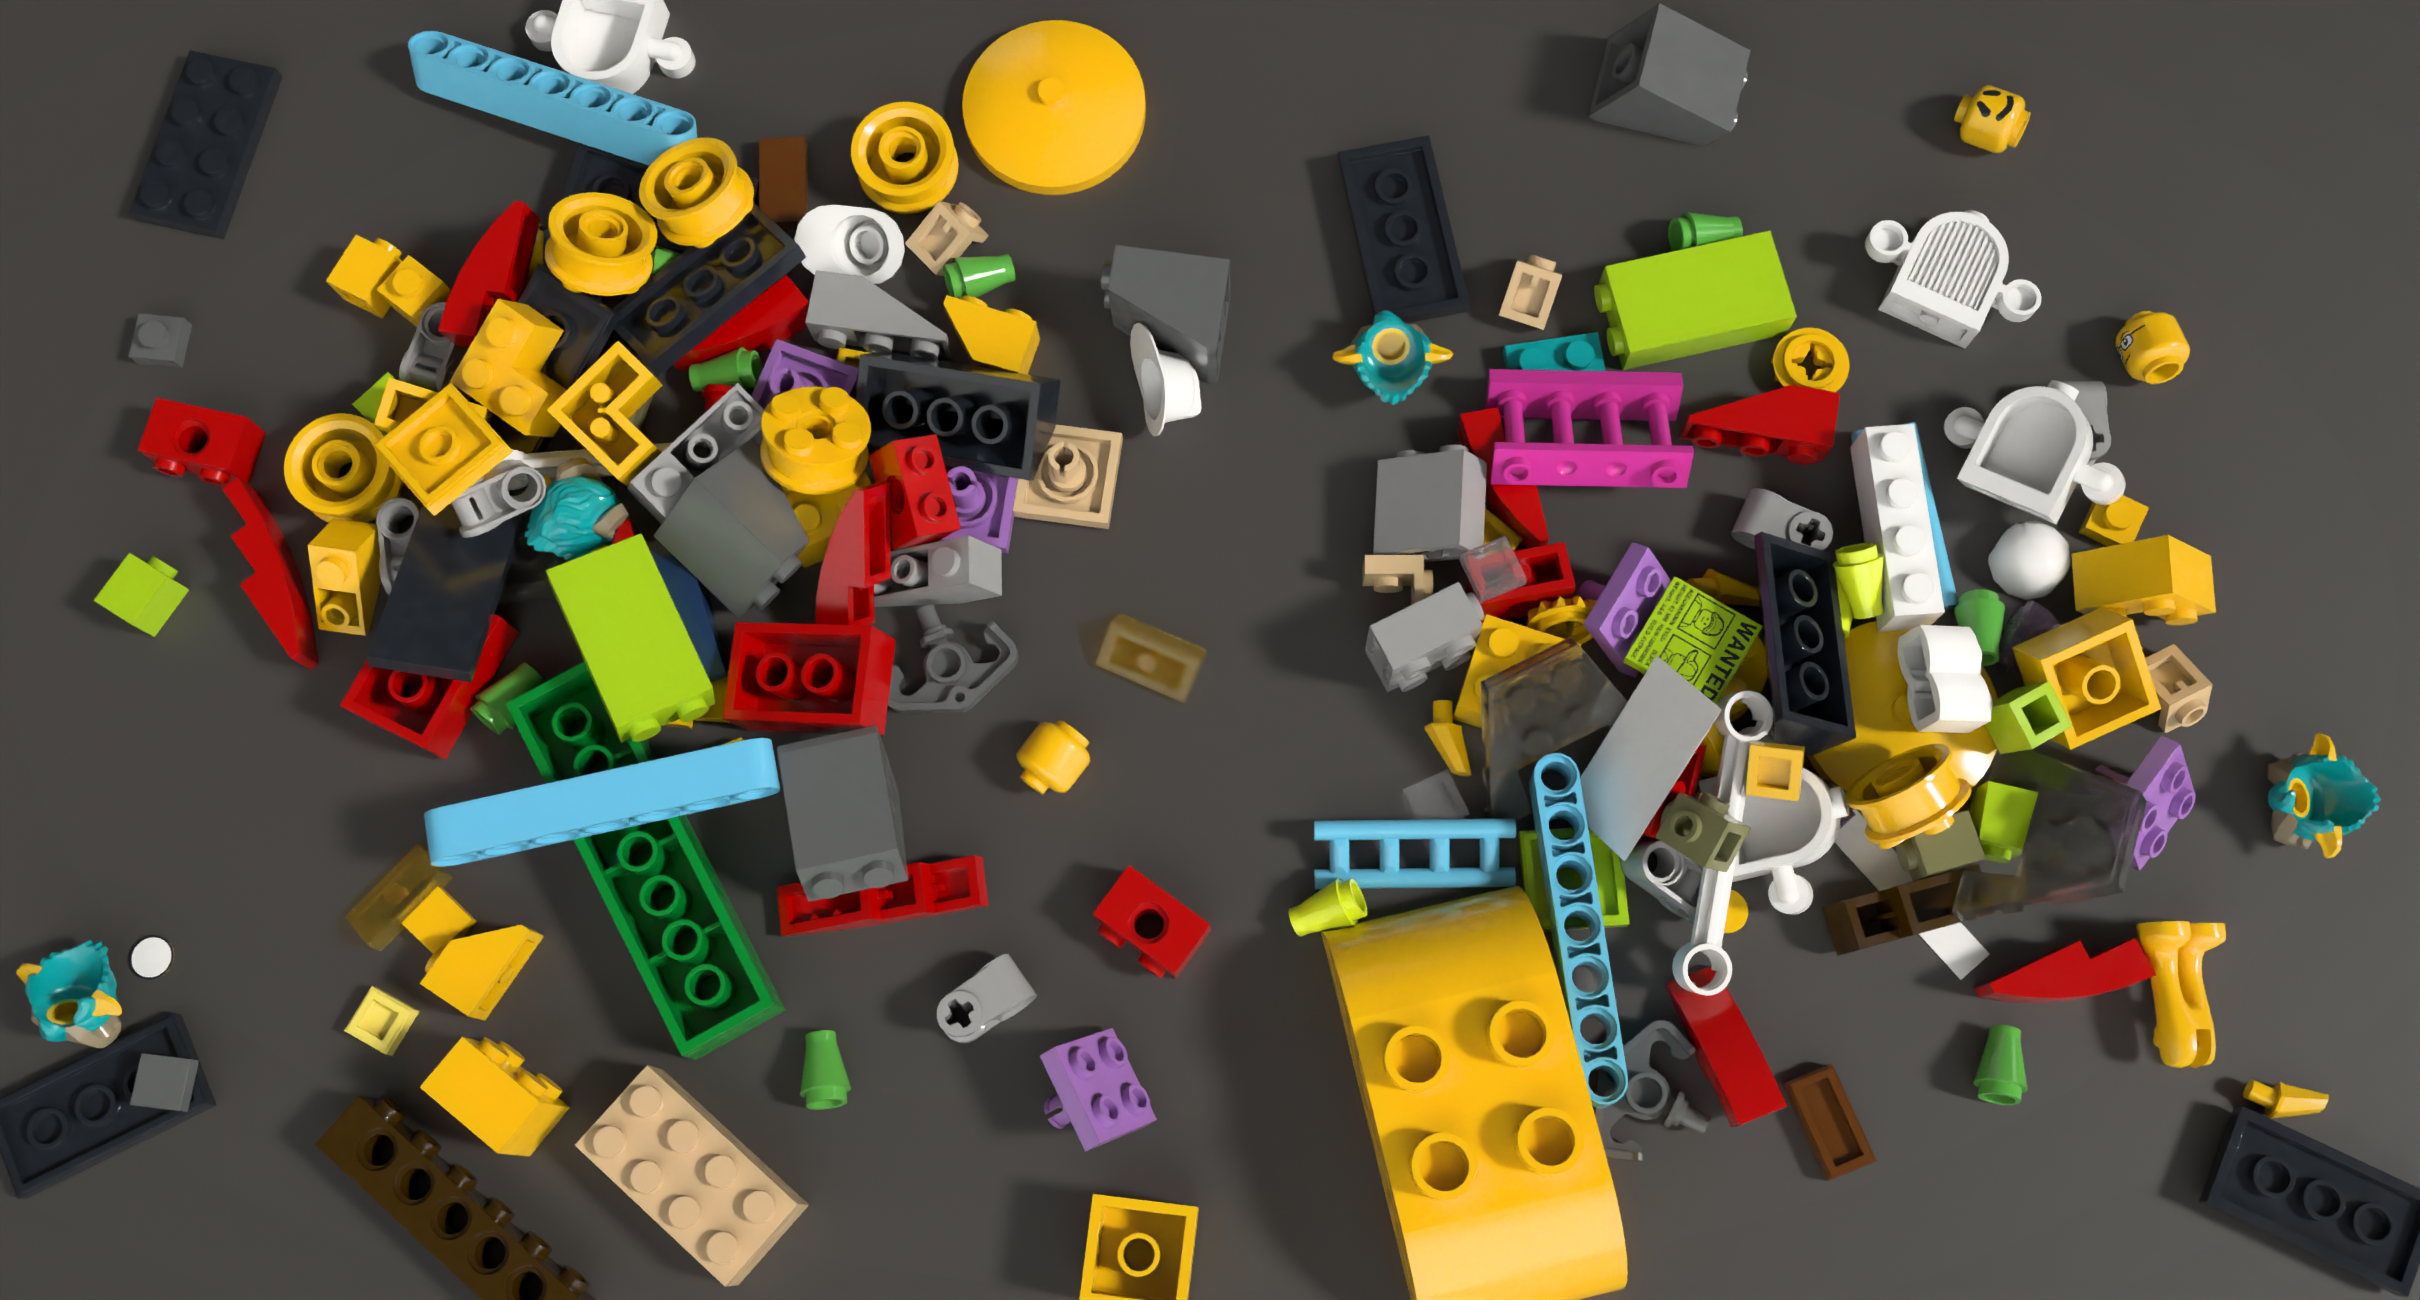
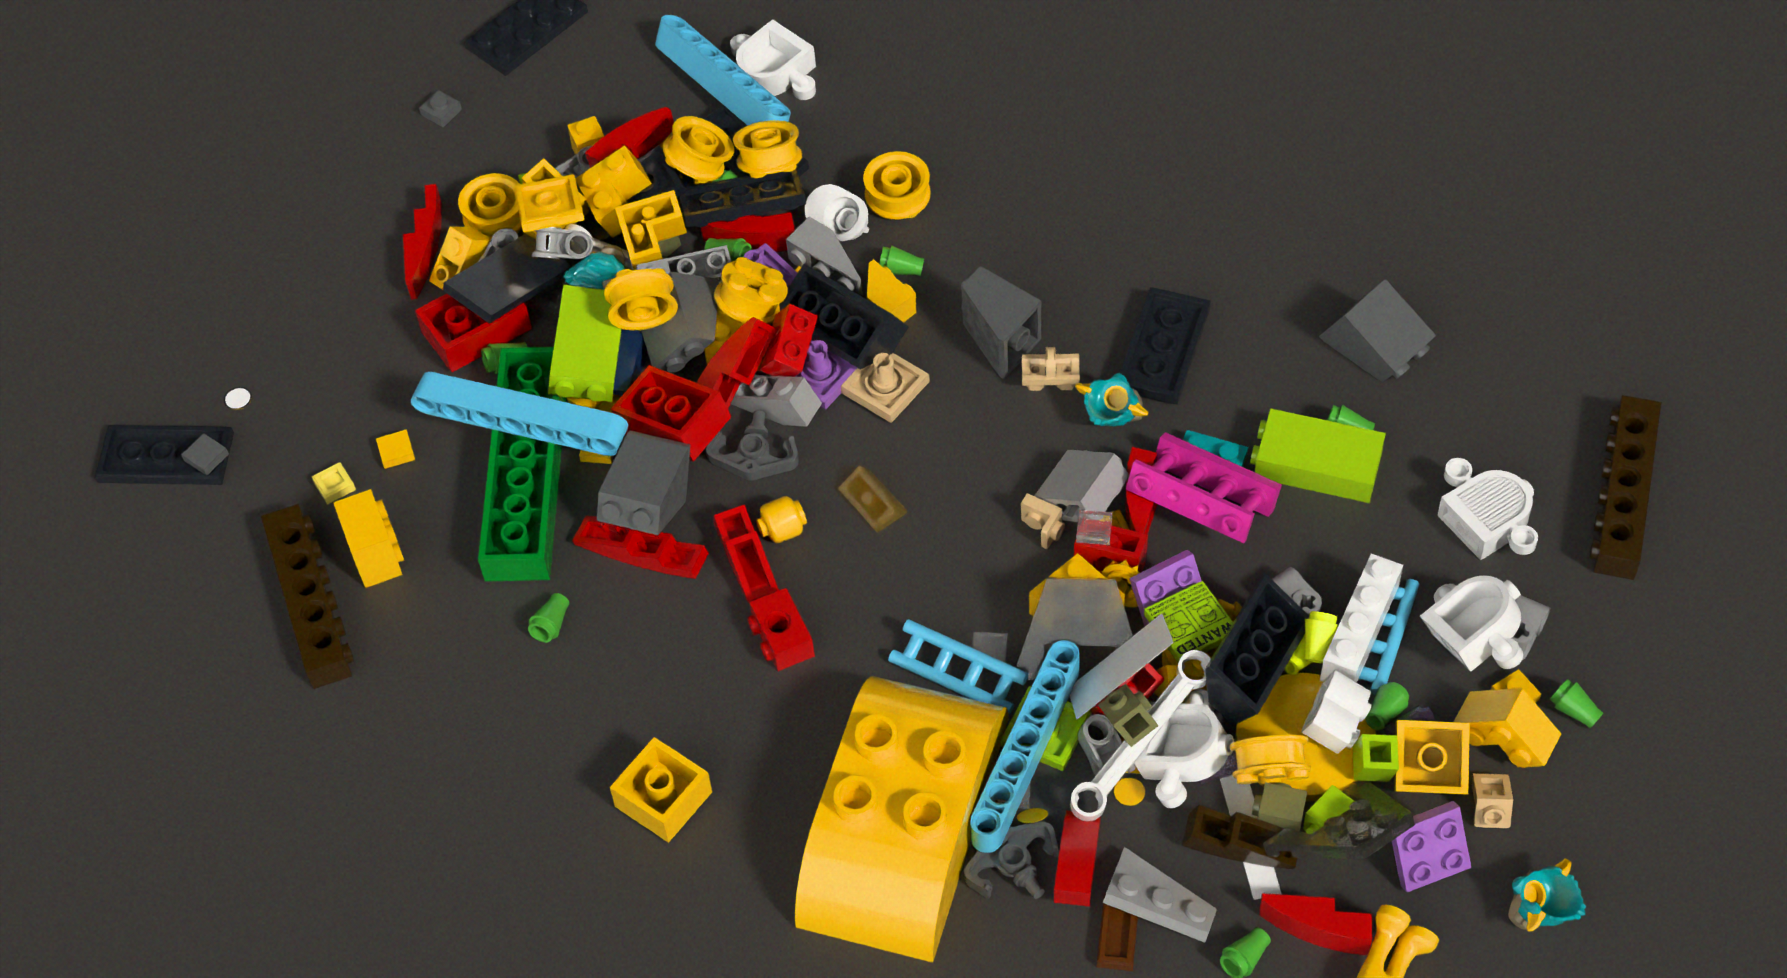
camera: 30 degrees right, 20 degrees down
(74, 996) = (188, 391): teal hair -> none
(142, 593) = (351, 220): lime brick -> none
(179, 428) = (429, 162): red brick -> none
(362, 271) = (563, 114): yellow brick -> none
(392, 900) = (367, 430): clear yellow slope -> none
(479, 968) = (403, 478): yellow slope -> none
(678, 544) = (640, 299): none -> yellow wheel
(692, 1175) = (444, 632): tan brick -> none
(783, 179) = (824, 168): reddish brown tile -> none
(945, 235) = (896, 232): tan bracket -> none
(993, 993) = (662, 624): light grey piece -> none
(1035, 834) = (745, 553): none -> red slope
(1054, 107) = (1001, 199): yellow dish -> none
(1096, 1089) = (693, 692): medium lavender plate -> none
(1165, 381) = (973, 360): white piece -> none
(1299, 339) = (1060, 370): none -> tan hips
(1330, 908) = (892, 667): neon yellow cone -> none
(1425, 637) = (1032, 548): light grey brick -> none
(1448, 738) = (1018, 619): yellow bar -> none
(1531, 291) = (1220, 407): tan bracket -> none
(1634, 1015) = (1032, 815): none -> yellow sticker
(1775, 770) = (1192, 701): yellow plate -> none
(1780, 422) = (1328, 540): red slope -> none
(1826, 352) = (1367, 511): yellow gear -> none
(1853, 1051) = (1158, 898): none -> light grey wing
(1992, 119) = (1573, 439): yellow head -> none
(2030, 560) = (1444, 688): white hair -> none
(2100, 131) = (1633, 439): none -> dark brown brick
(2152, 347) = (1598, 605): yellow head -> none
(2195, 499) = (1576, 703): none -> bright green cone

